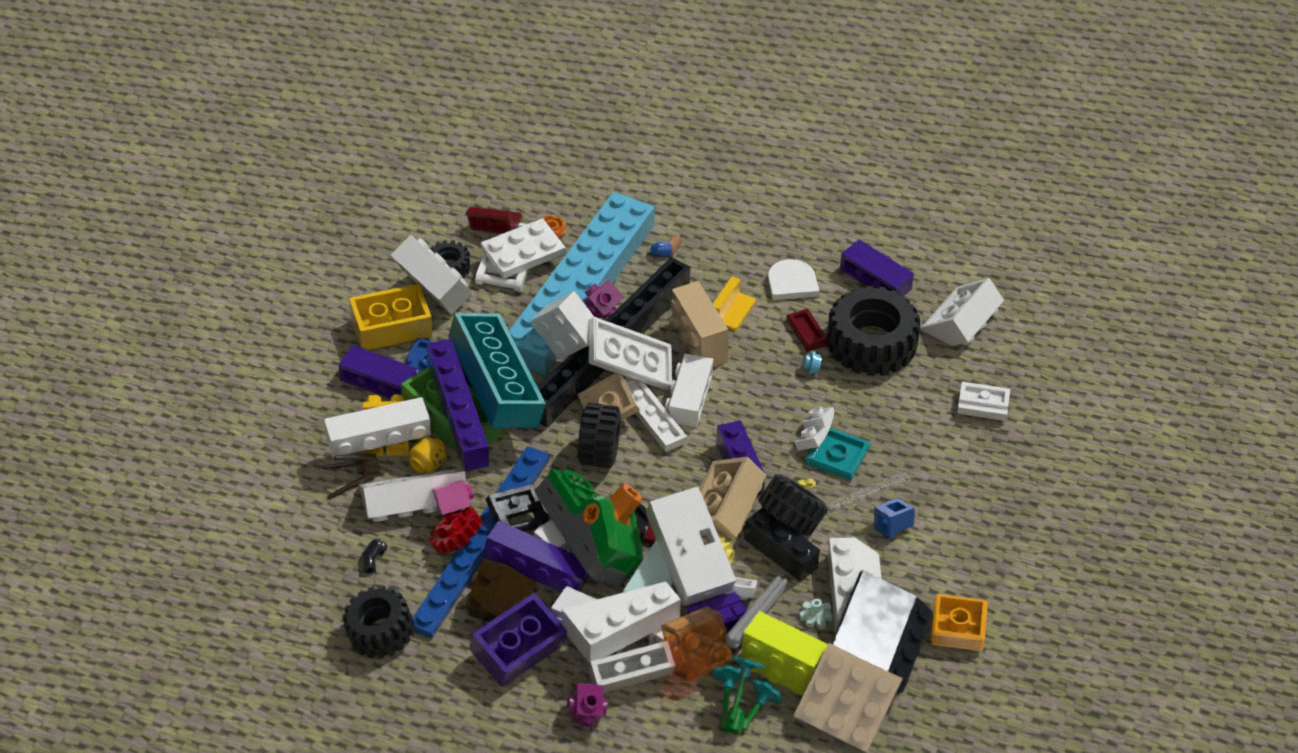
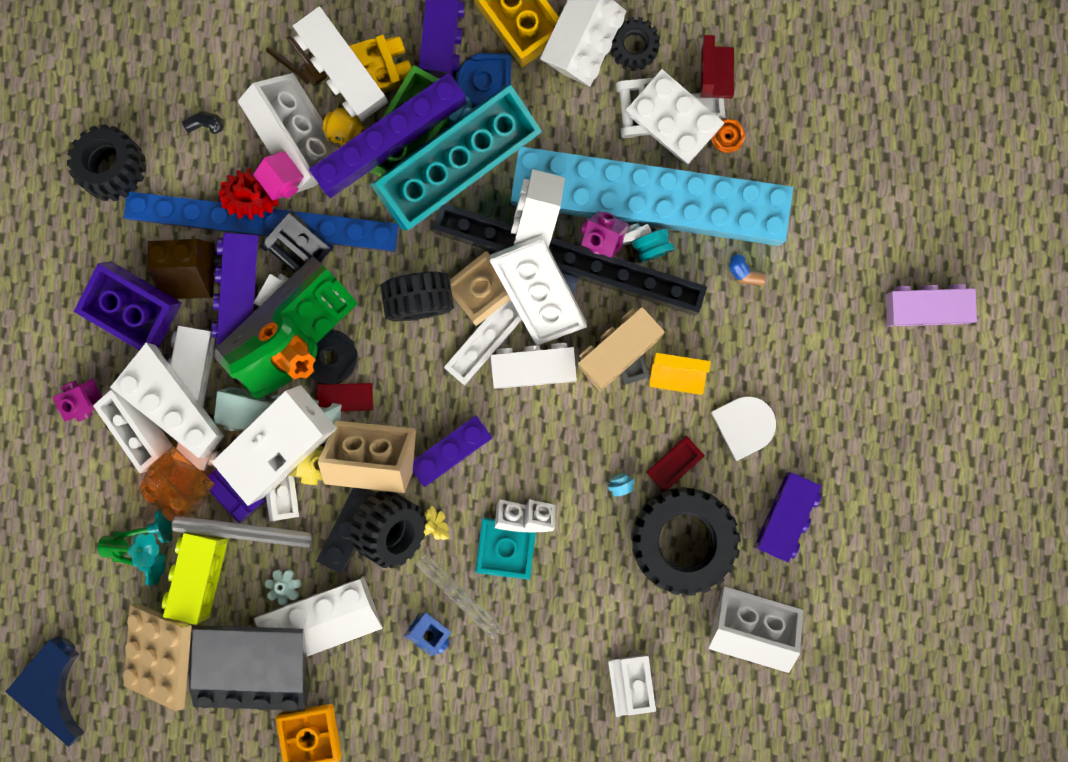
camera: 75 degrees right, 40 degrees up
(623, 284) = (653, 245): none -> teal wheel
(741, 150) = (931, 306): none -> lavender brick

